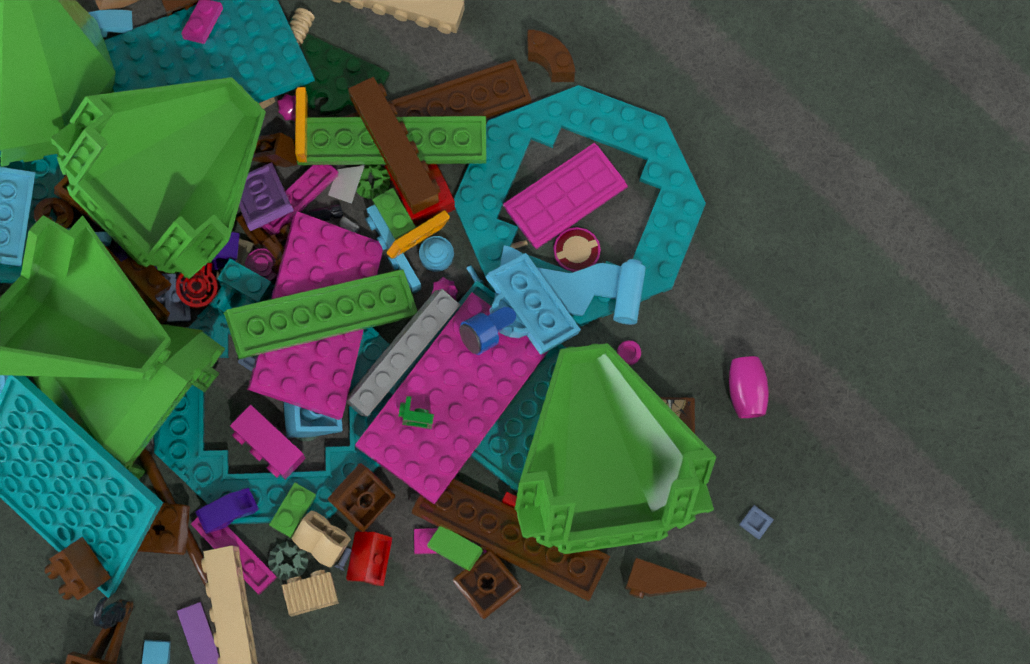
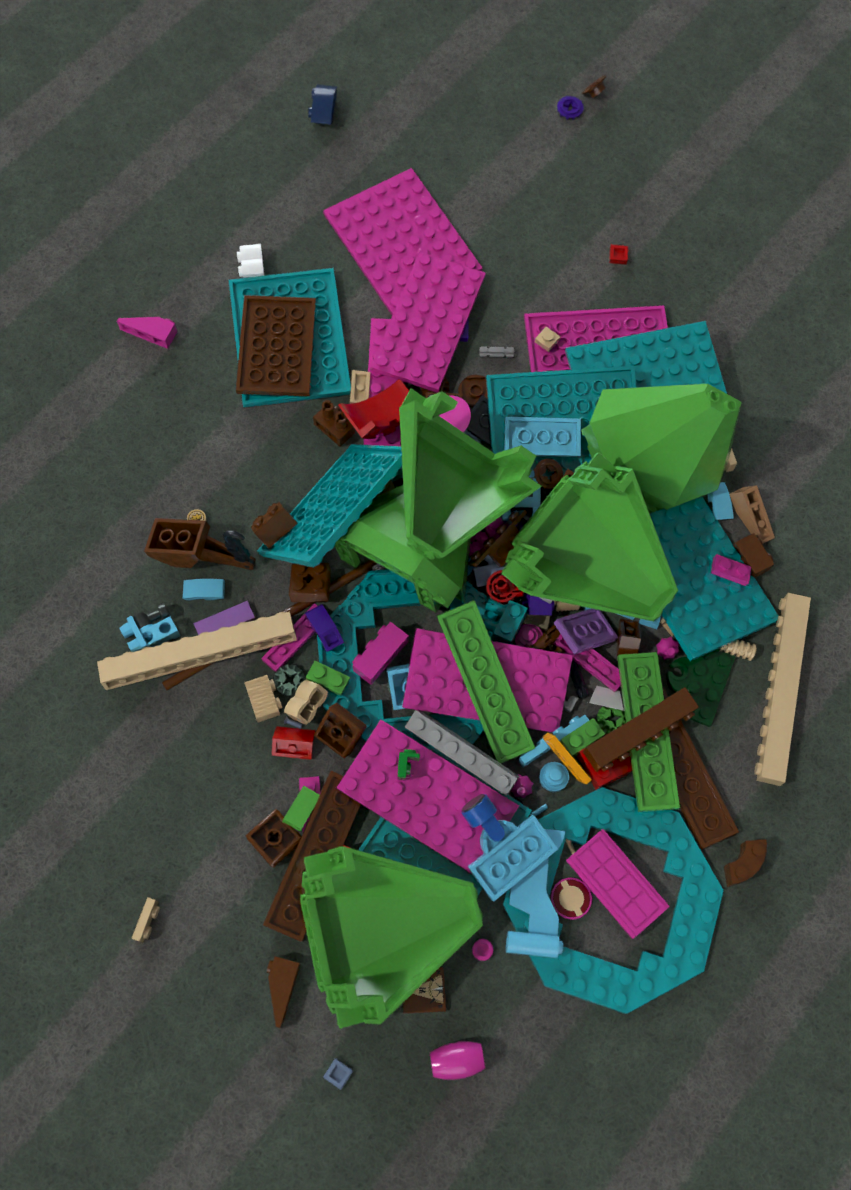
camera: 85 degrees right, 5 degrees down
(301, 124) = (649, 653): light orange tile -> none

